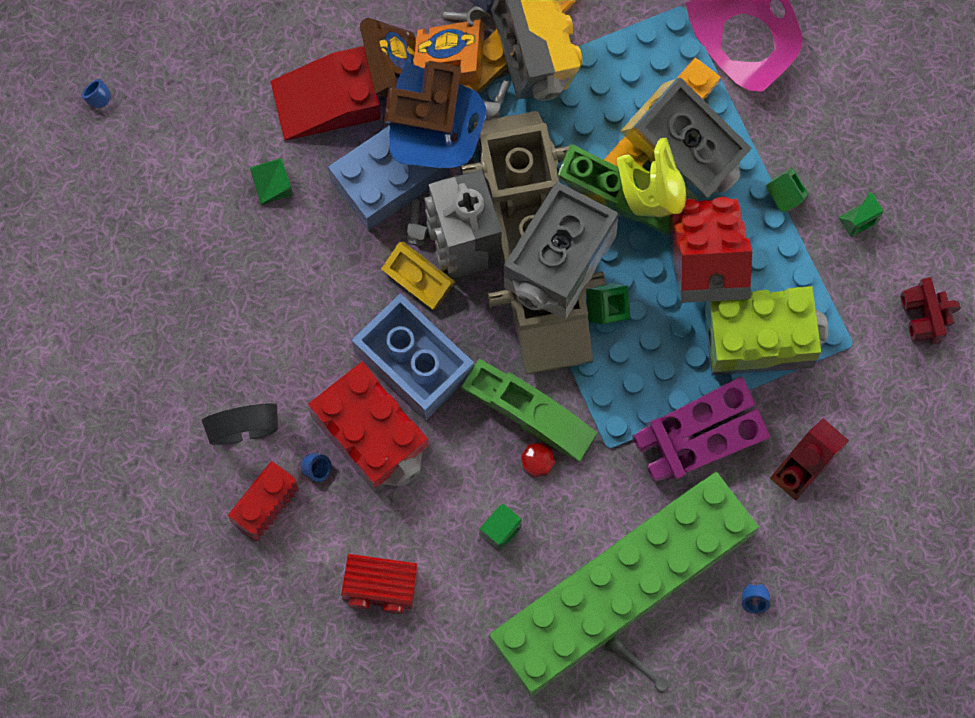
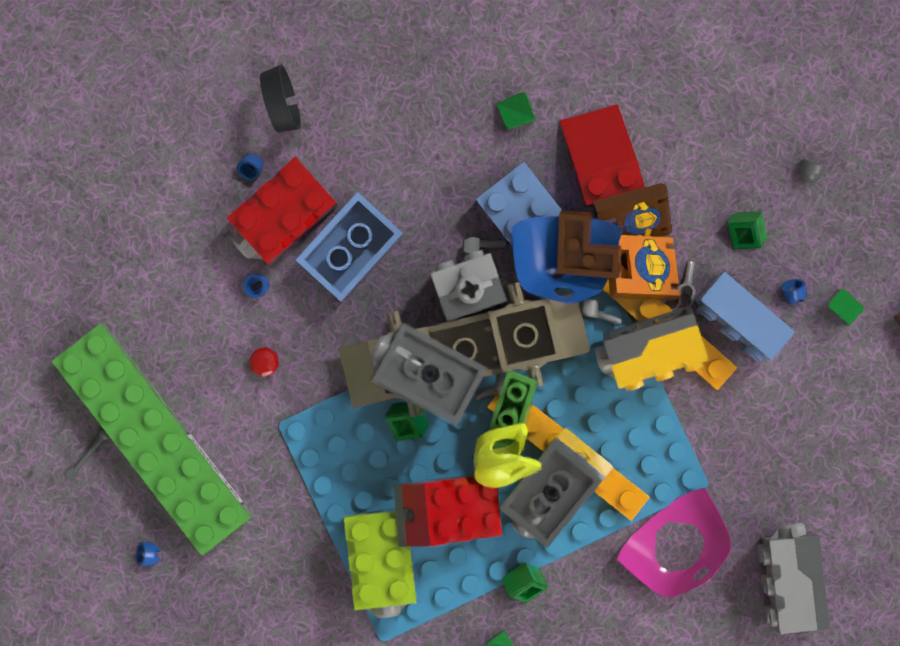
camera: 85 degrees right, 15 degrees up
(263, 501) = (215, 123): red brick -> none
(379, 583) = (148, 228): red brick -> none
(418, 275) = (429, 248): yellow plate -> none
(458, 460) = (254, 279): none -> blue hinge
(500, 527) = (199, 331): green slope -> none
(531, 409) = (305, 352): bright green slope -> none
(674, 431) = (290, 506): magenta hips -> none
(809, 458) = (271, 602): dark red slope -> none

